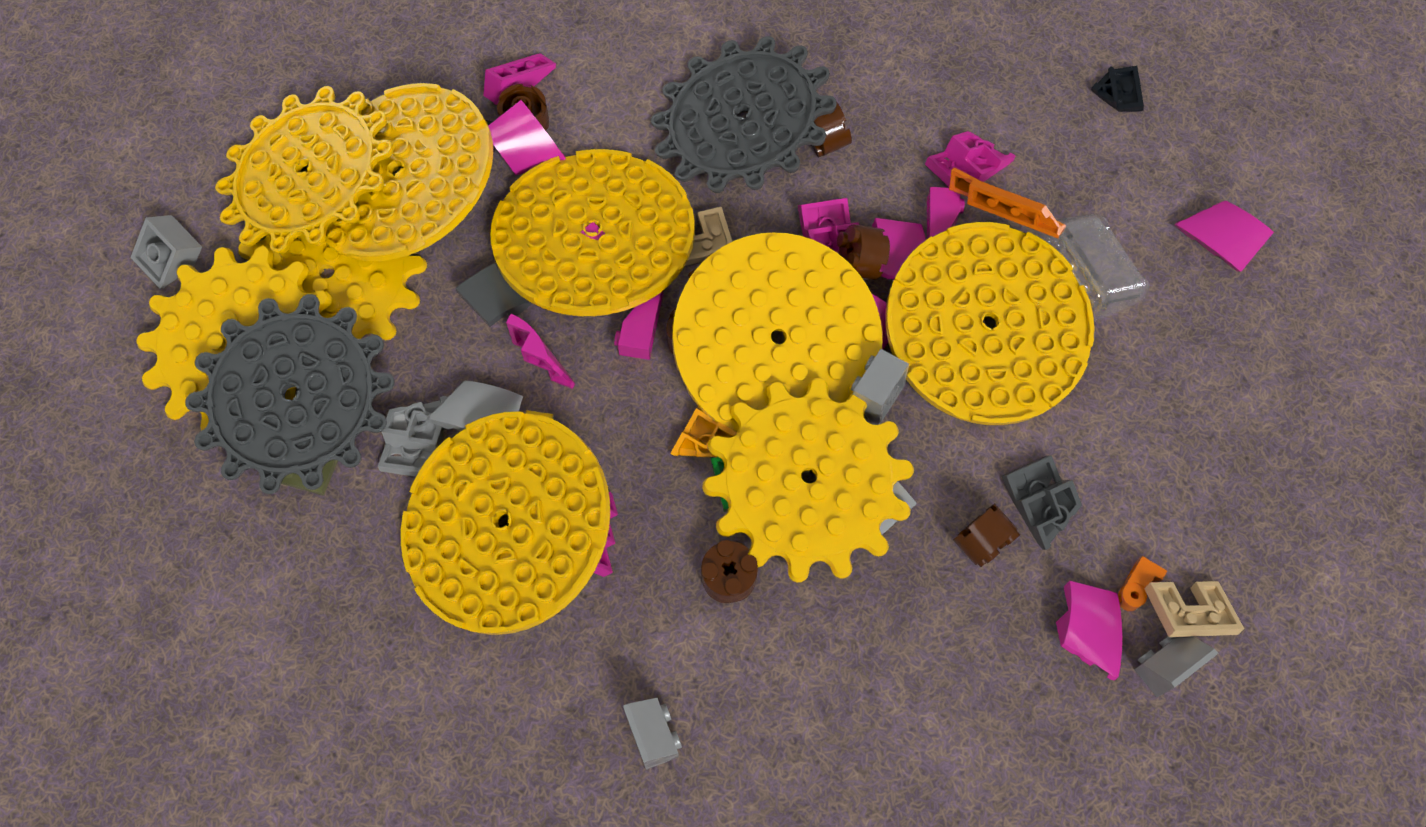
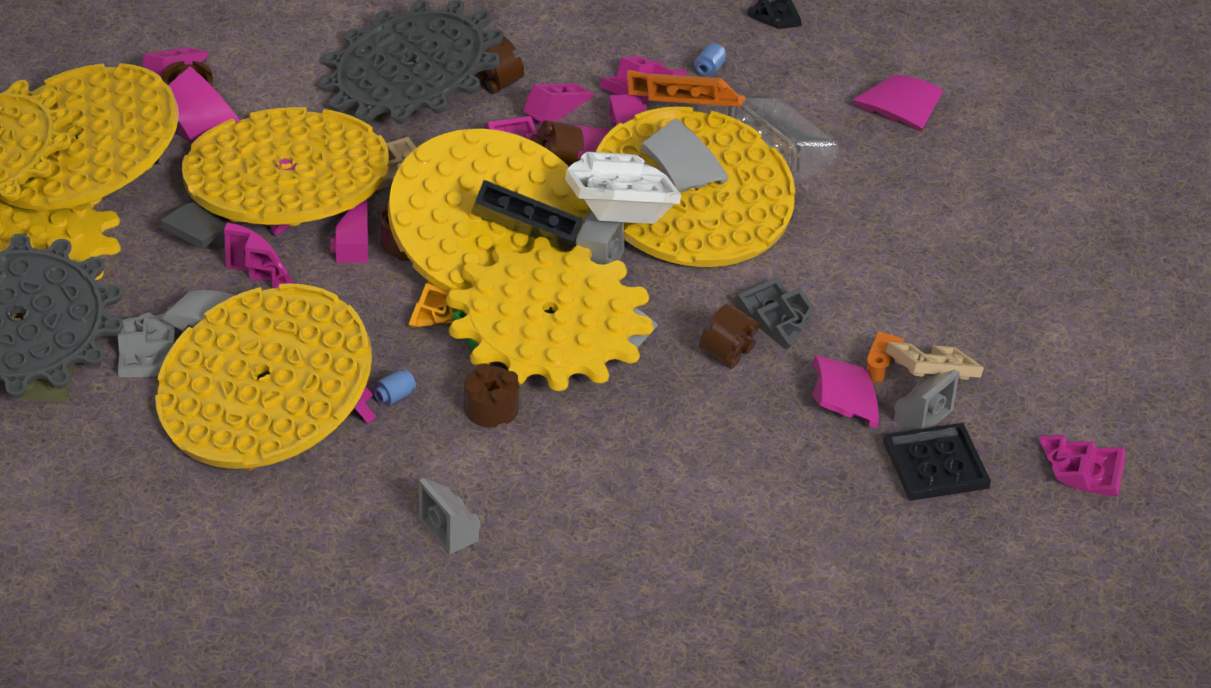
camera: 15 degrees left, 25 degrees down
(637, 539) = (394, 387): none -> medium blue brick
(808, 356) = (526, 215): none -> black brick
(877, 179) = (555, 100): none -> dark pink slope
(912, 337) = (622, 187): none -> white piece
(984, 297) = (683, 157): none -> light grey slope
(1041, 148) = (710, 60): none -> medium blue brick
(1168, 742) = (936, 461): none -> black plate
(1326, 771) = (1083, 463): none -> dark pink slope

